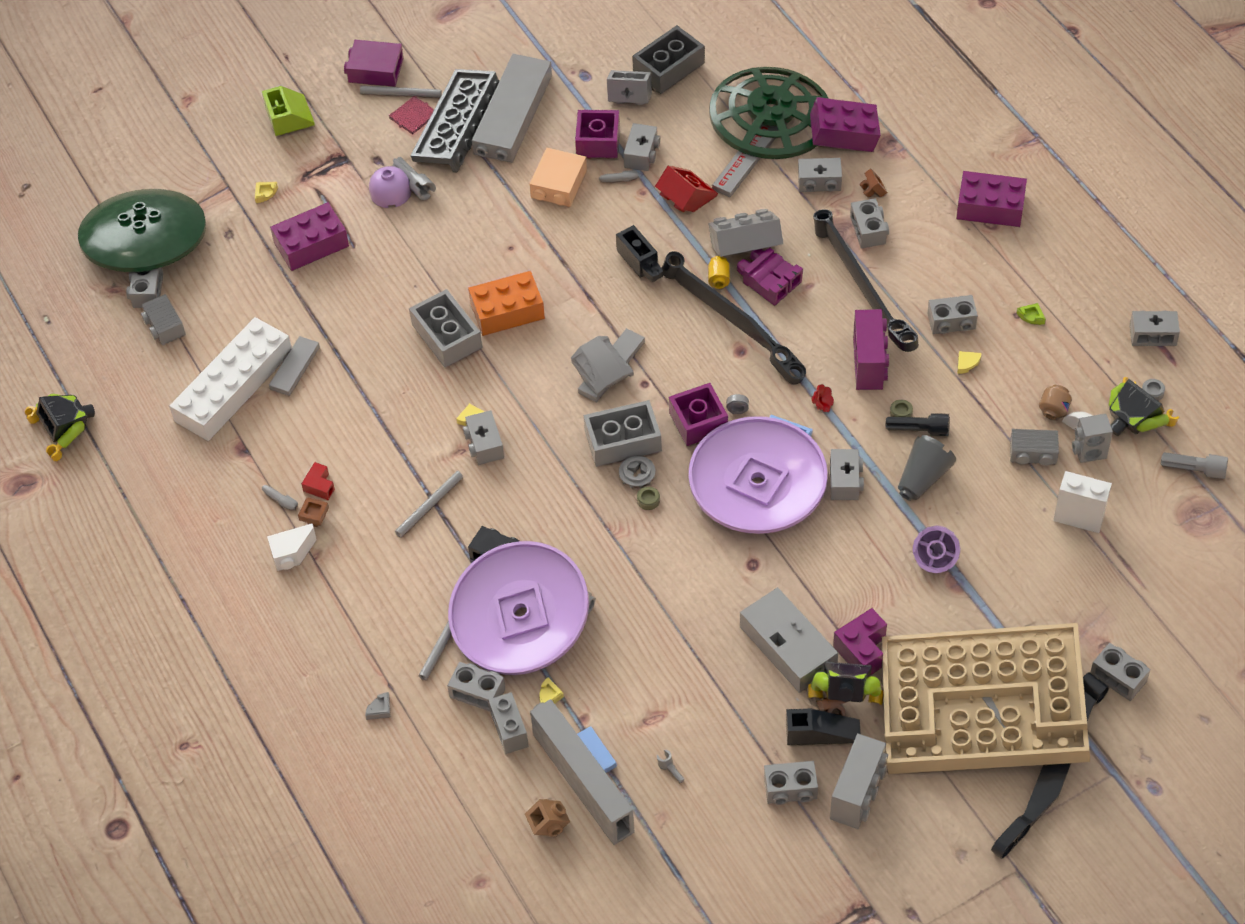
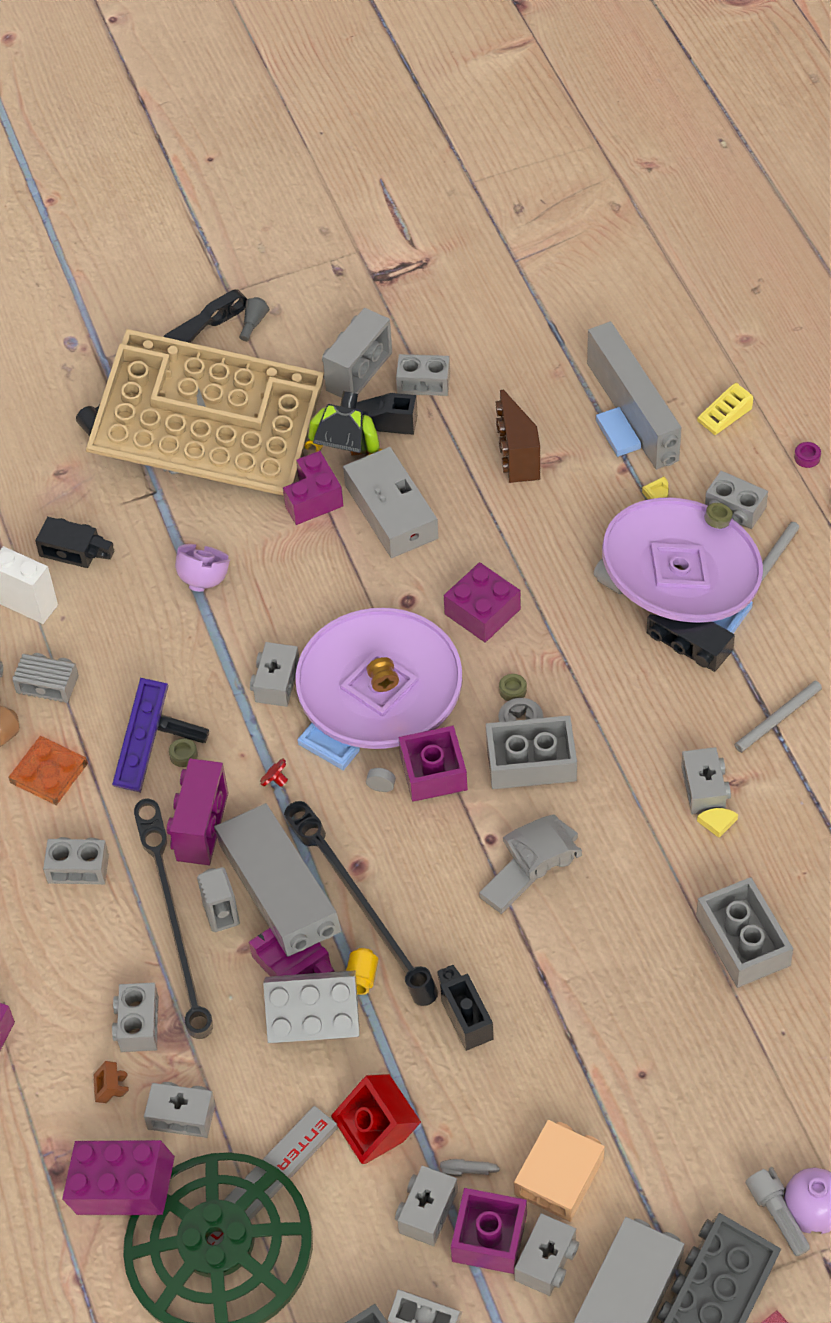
camera: 170 degrees left, 0 degrees up
(413, 752) = (807, 454): none -> magenta tile
(488, 804) = (736, 397): none -> light yellow slope
(490, 658) = (718, 515): none -> olive tile
(506, 303) = (658, 964): orange brick -> none
(508, 723) = (703, 456): light grey brick -> none
(547, 817) = (673, 365): medium nougat brick -> none
(559, 131) = (546, 1237): none -> light grey brick
(668, 764) = (542, 410): light grey hand -> none
(683, 707) = (518, 441): none -> reddish brown slope
(686, 556) = (482, 602): none -> magenta brick
(752, 460) = (382, 674): none -> pearl gold wheel
(794, 307) = (277, 879): none -> light grey brick
(834, 292) = (218, 899): none -> light grey brick
(924, 467) = (181, 661): dark grey cone -> none
(936, 402) = (140, 735): none -> dark purple tile
(967, 361) = (80, 803): light yellow tile -> none
(979, 835) = (254, 312): none -> dark grey cone
(1003, 382) = (48, 770): none -> clear orange plate
(1060, 565) = (72, 543): none -> black hinge
(1117, 675) = (57, 432): light grey brick -> none

